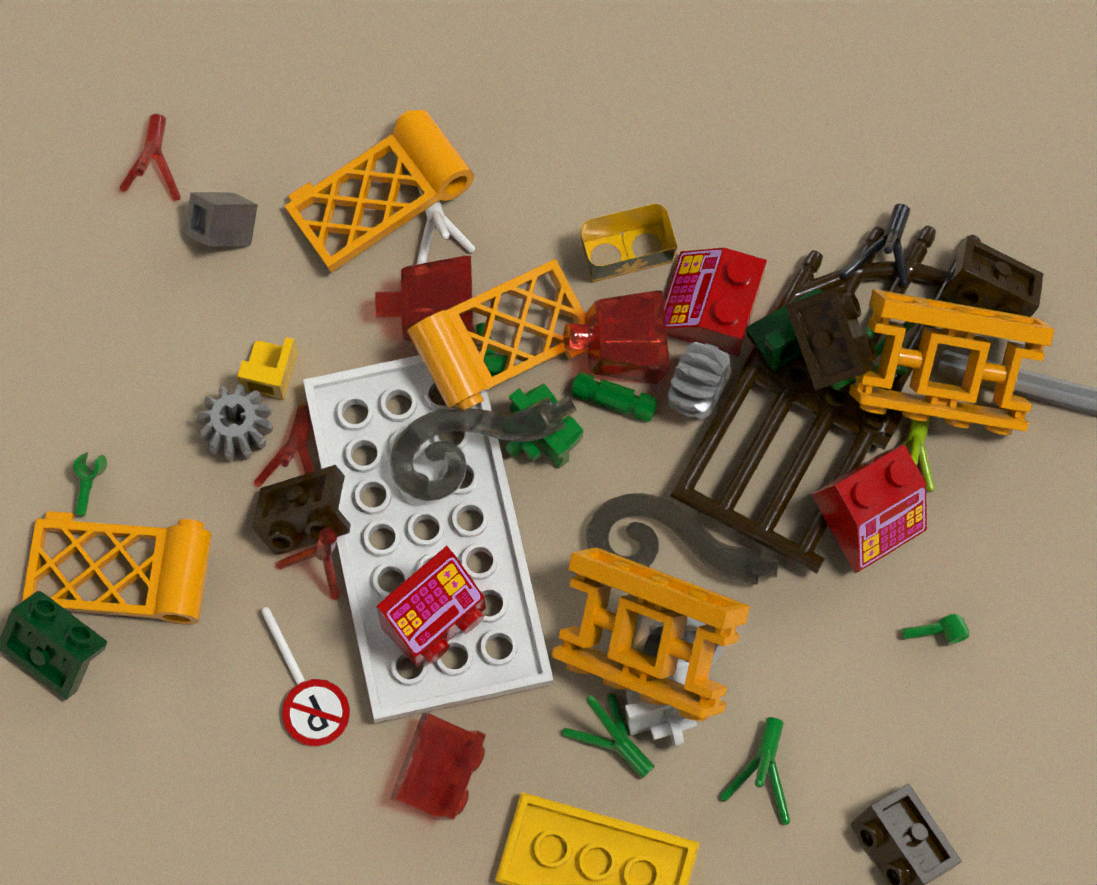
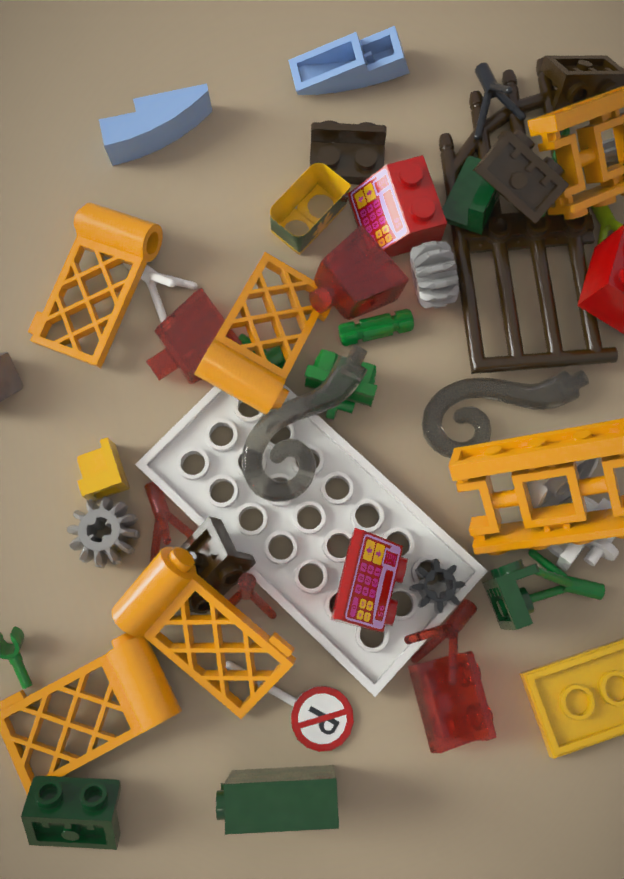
camera: 35 degrees left, 5 degrees up
(233, 740) = (279, 800): none -> dark green brick
(252, 504) = (162, 592): none -> light orange piece
(479, 712) = (449, 630): none -> clear red plant
(497, 668) = (444, 576): none -> black gear
(539, 68) = (155, 124): none -> light blue slope
(553, 696) = (509, 602): none -> dark green bracket
(707, 211) = (349, 149): none -> dark brown bracket
(773, 124) = (349, 64): none -> light blue slope

